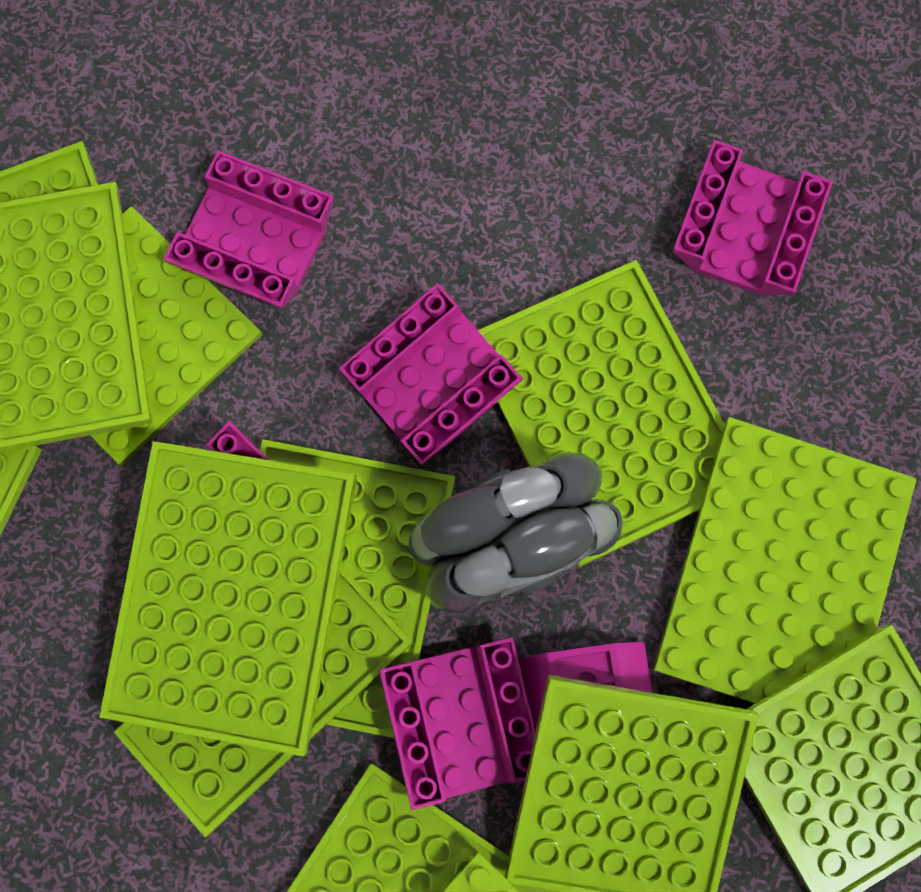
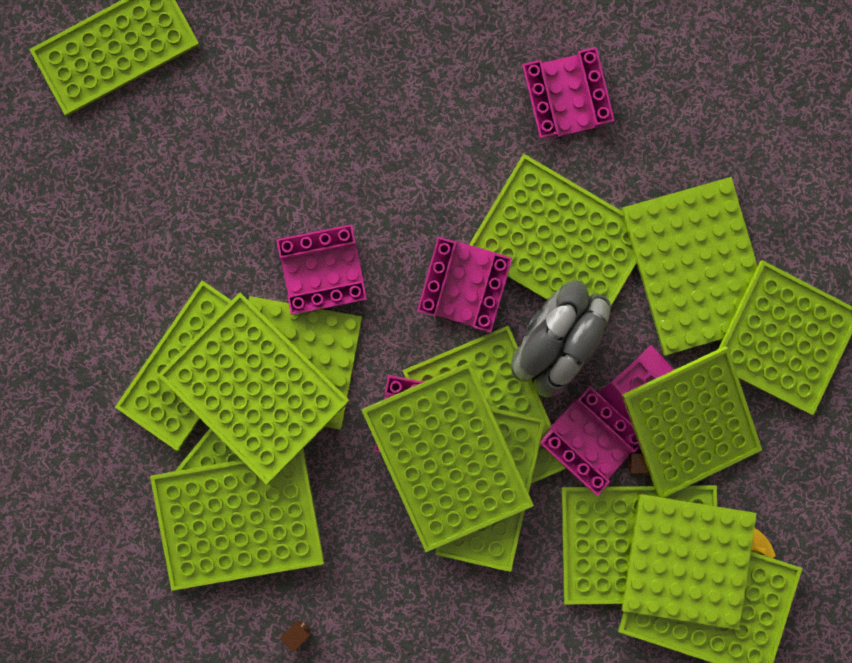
camera: 30 degrees left, 10 degrees up
(507, 805) = (637, 463): none -> reddish brown brick

